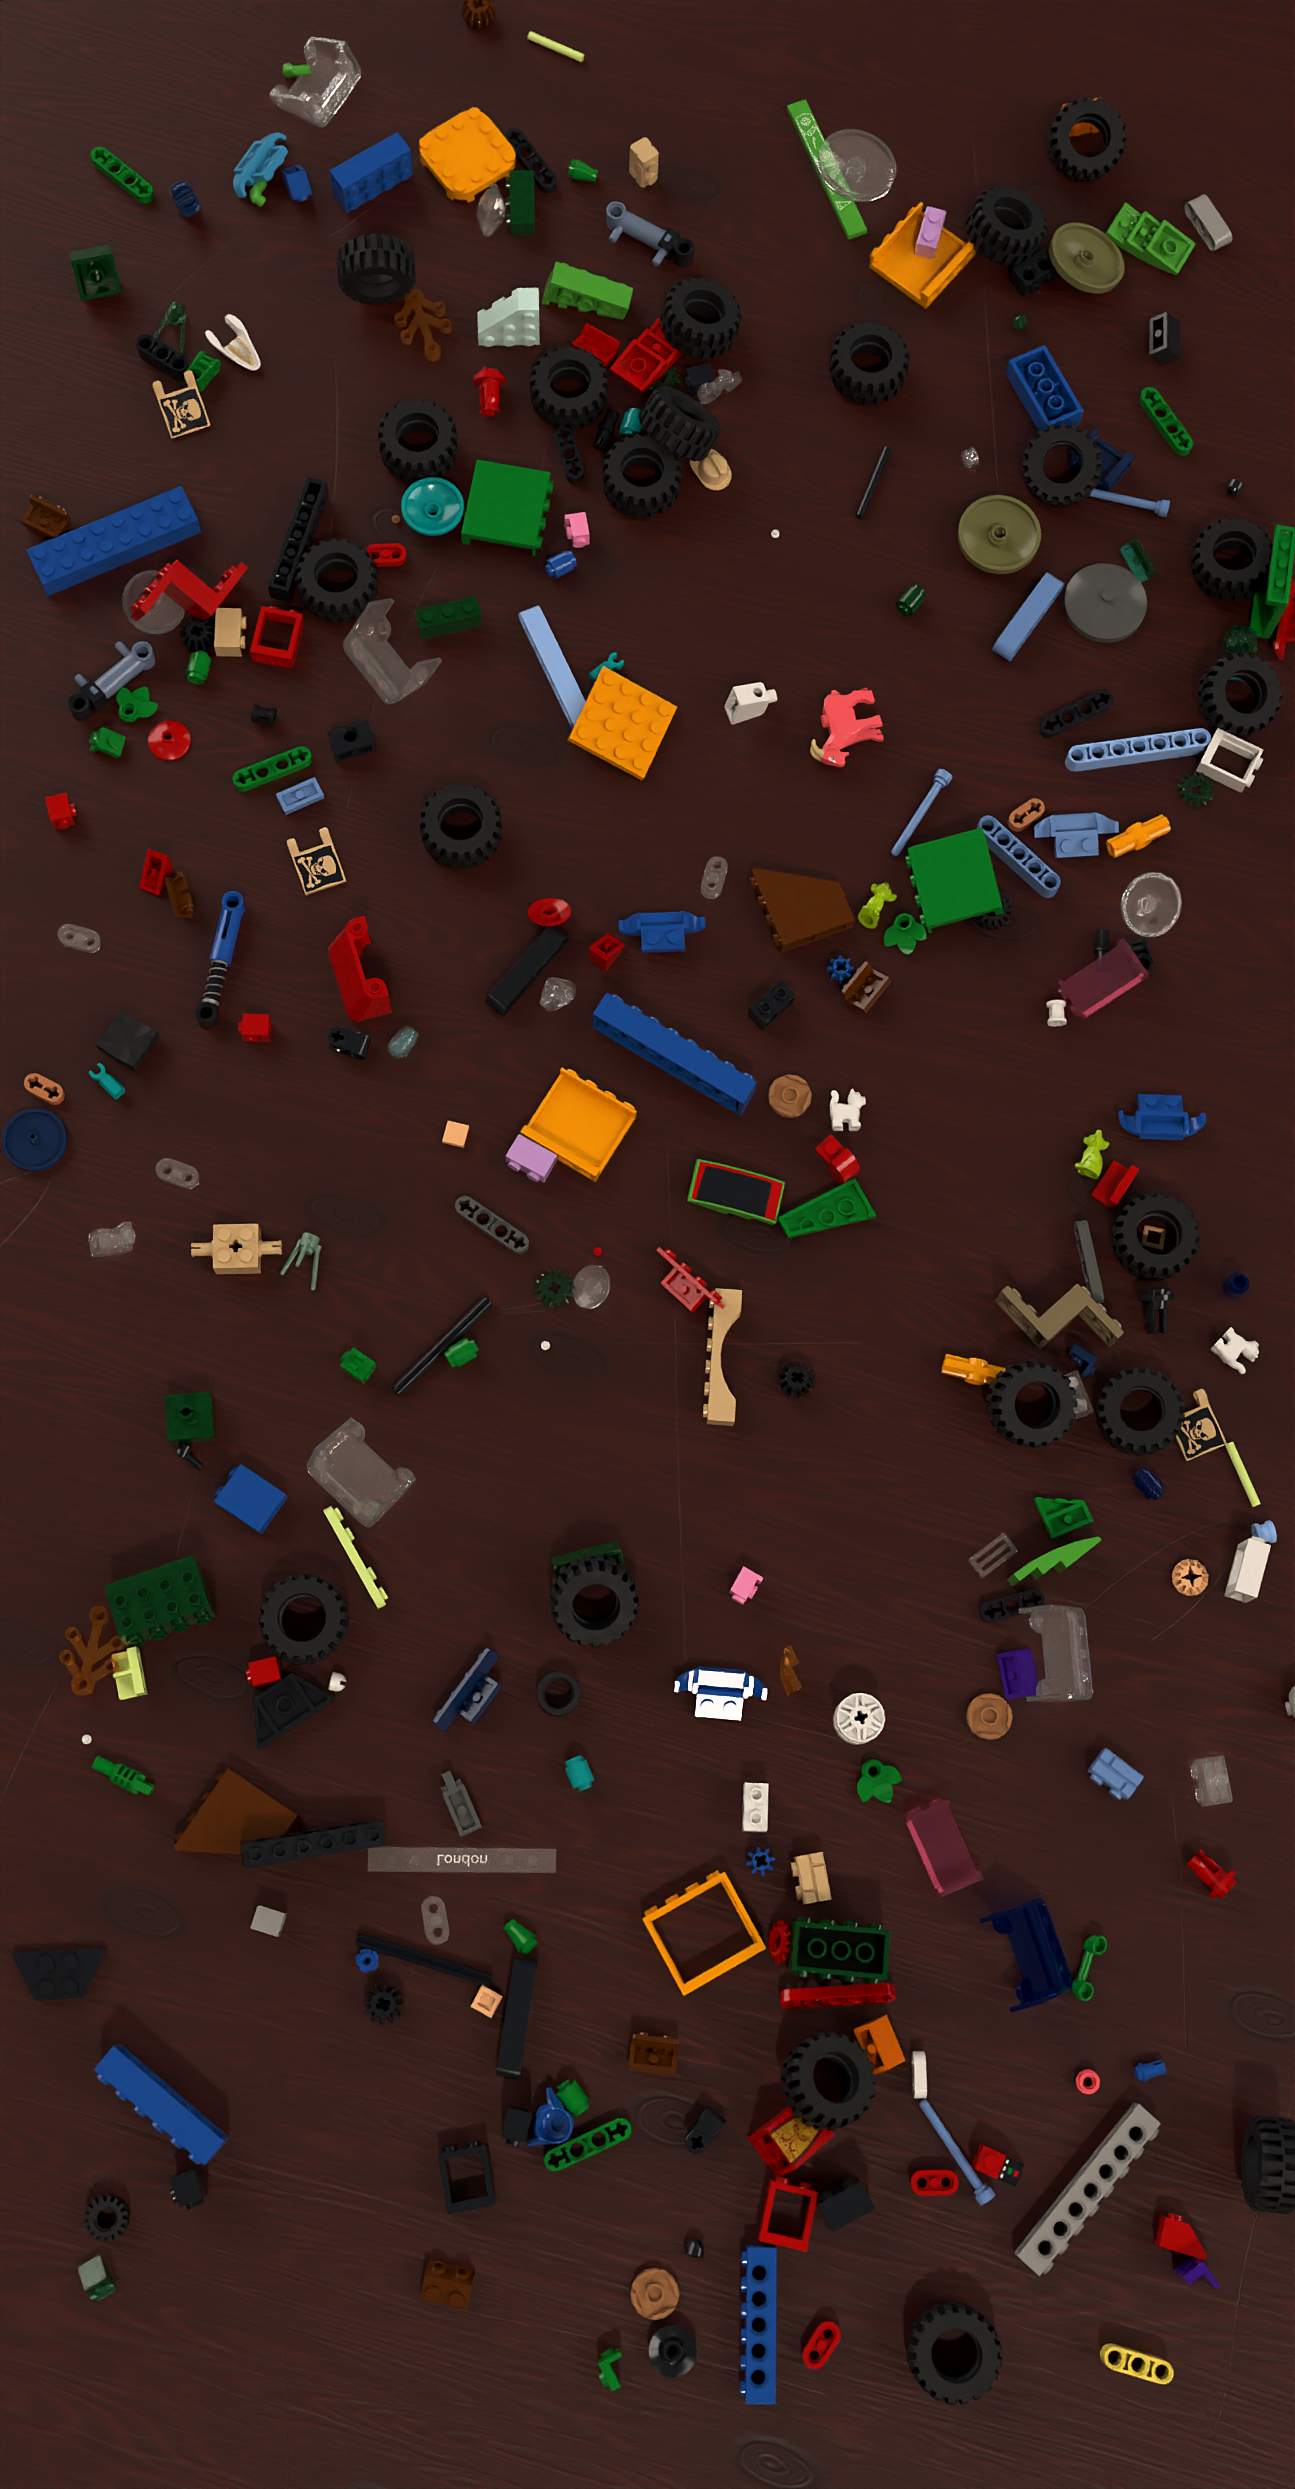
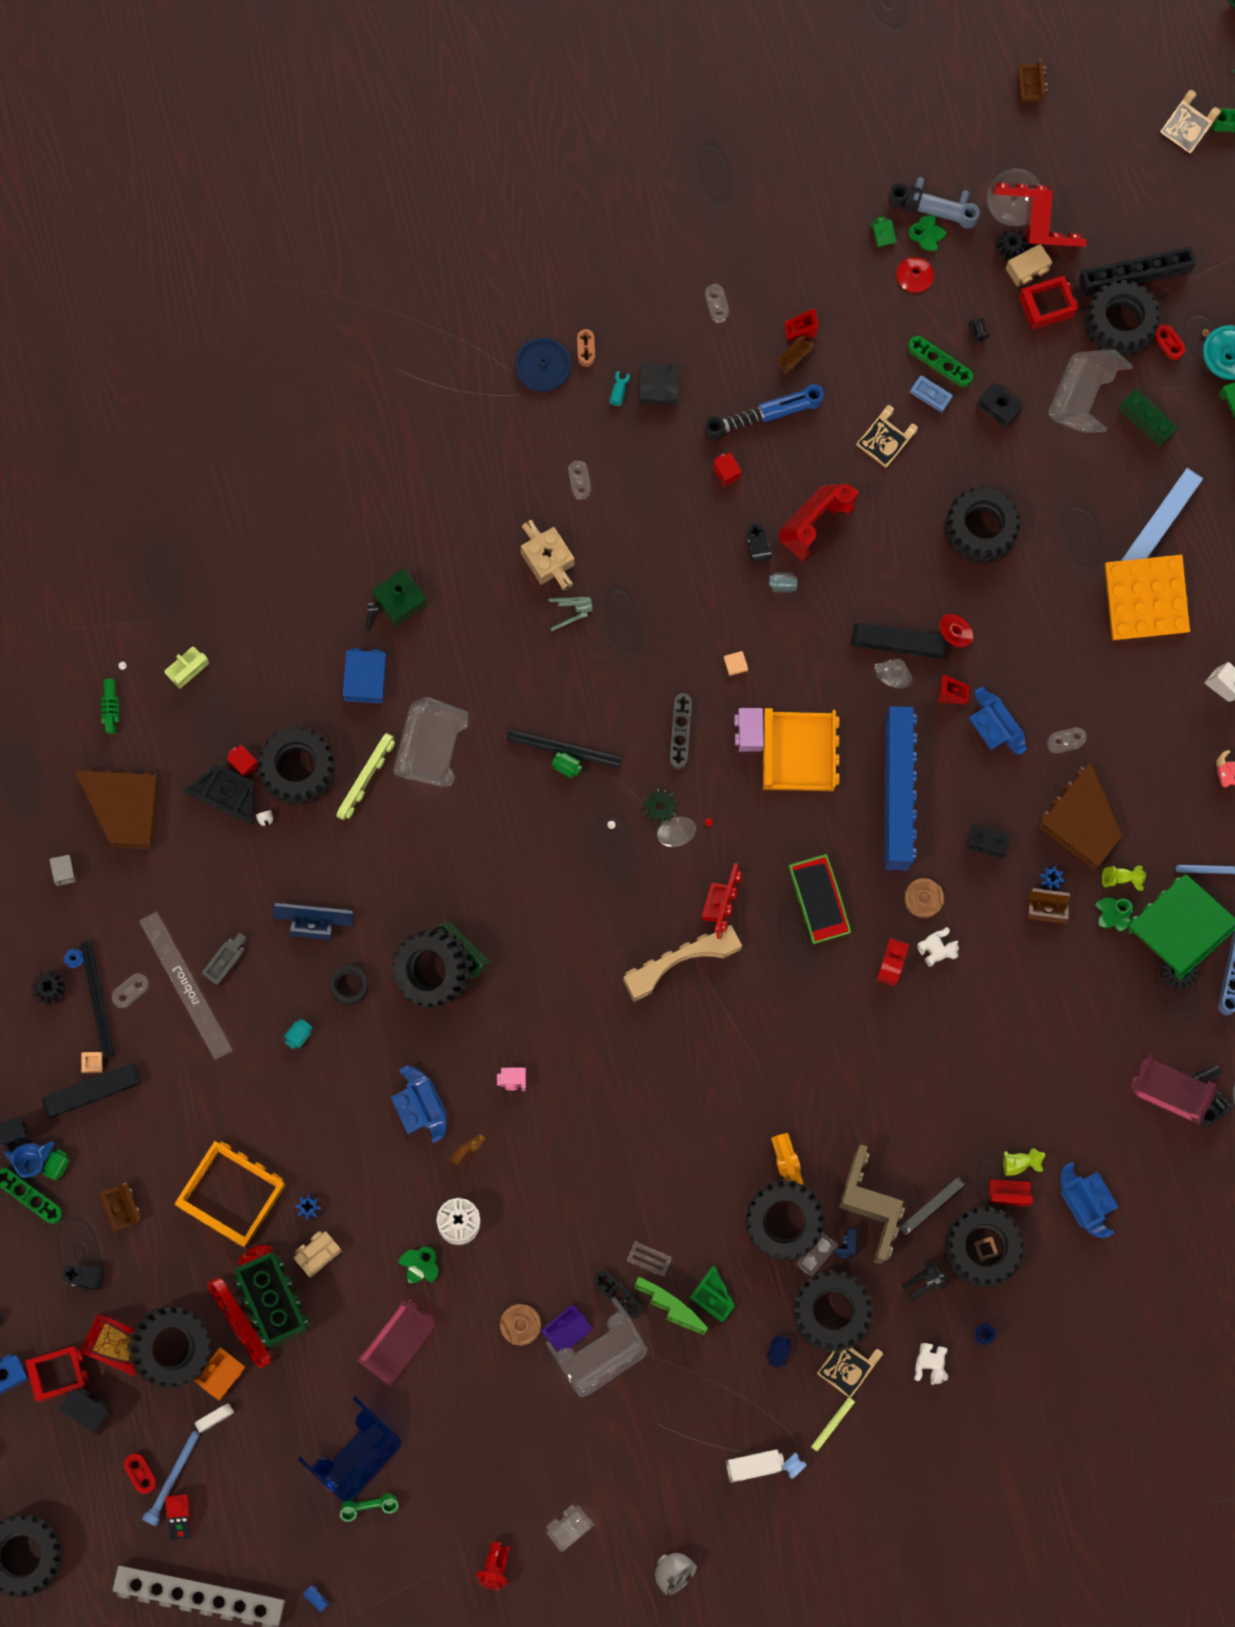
camera: 60 degrees right, 0 degrees up
(61, 811) = (807, 230): red brick -> none
(90, 1654) = (184, 631): clear orange plant -> none
(112, 1241) = (499, 463): clear brick -> none
(114, 541) = (1047, 140): blue brick -> none
(159, 350) = (1221, 78): black beam -> none
(160, 1602) = (249, 655): dark green brick -> none
(198, 667) = (986, 260): green brick -> none
(312, 1843) = (135, 866): black brick -> none
(357, 1365) = (511, 694): green brick -> none
(521, 1937) = (152, 1060): green cone -> none
(609, 664) = (1188, 560): teal bar -> none
(755, 1807) = (346, 1180): white brick -> none
(798, 1388) = (690, 1030): black gear -> none
(833, 1209) = (848, 979): green wing -> none
(1056, 1013) = (1124, 1069): white bush -> none
(1095, 2081) = (273, 1554): coral plate -> none
(1114, 1774) = (530, 1448): medium blue brick -> none
(1183, 1585) = (713, 1424): light nougat gear -> none

